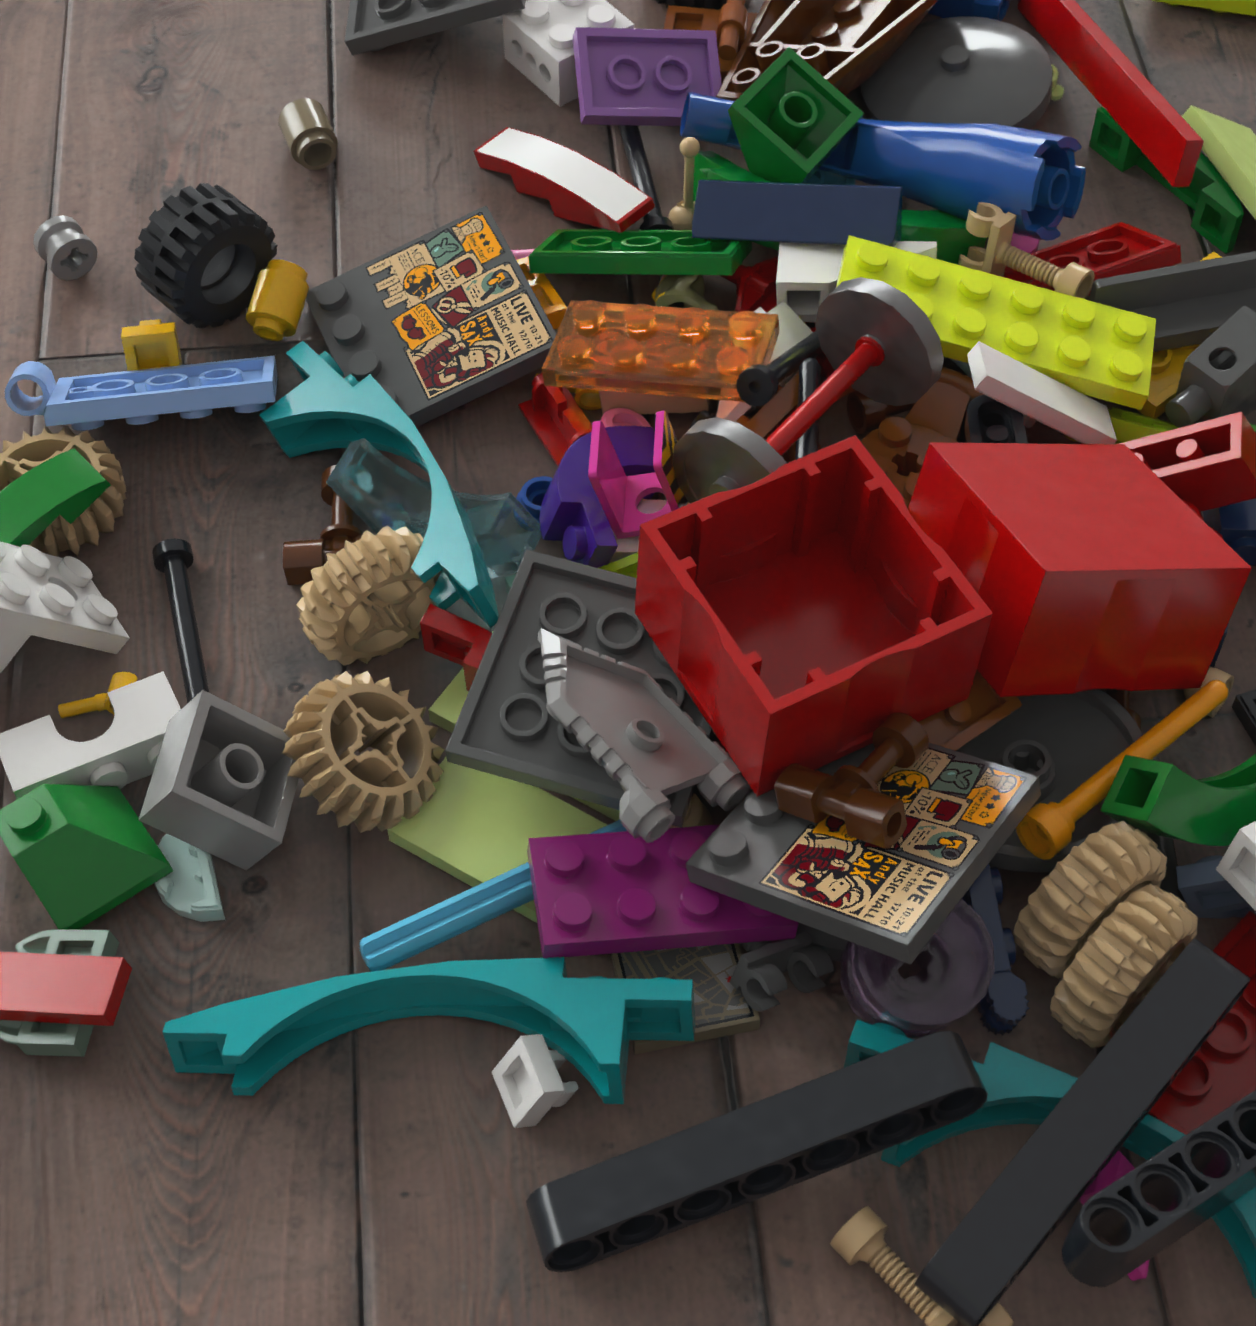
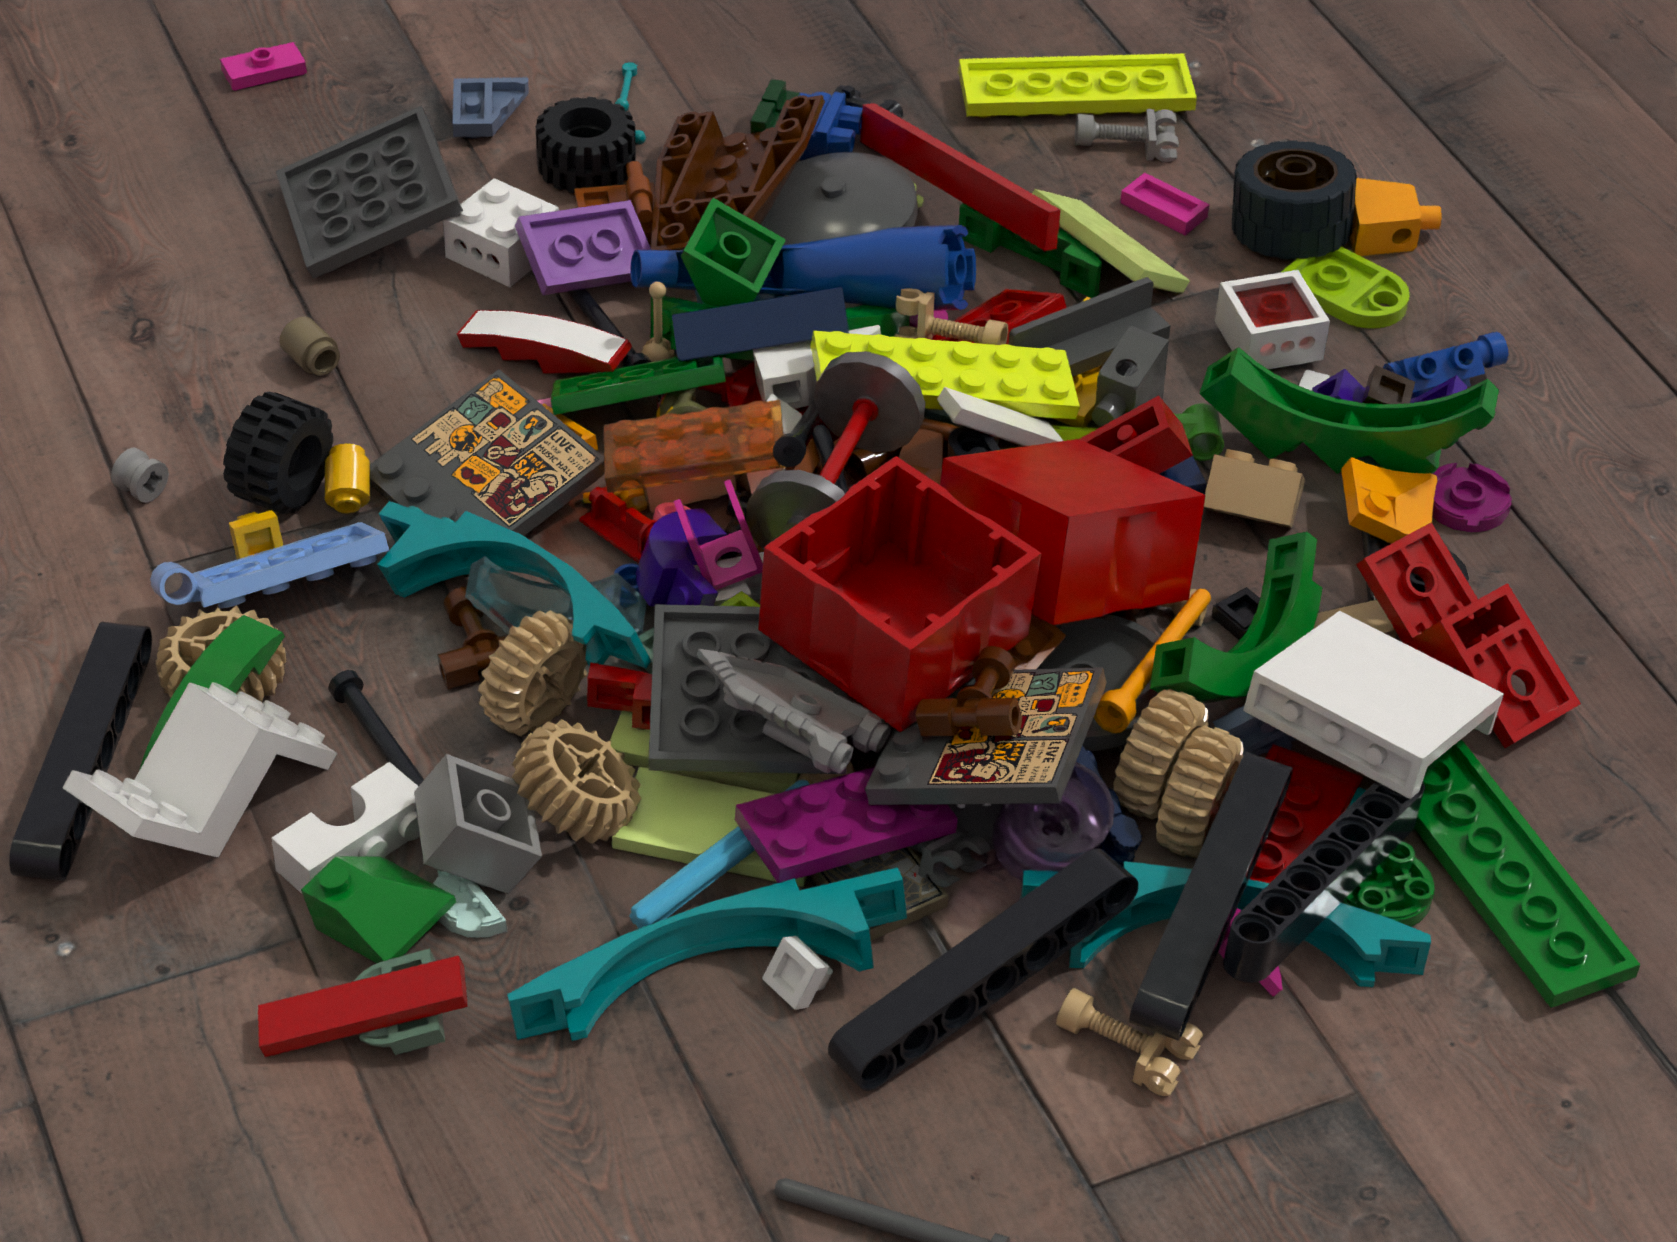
camera: 20 degrees left, 10 degrees down
(99, 701) = (338, 802): yellow hand -> none

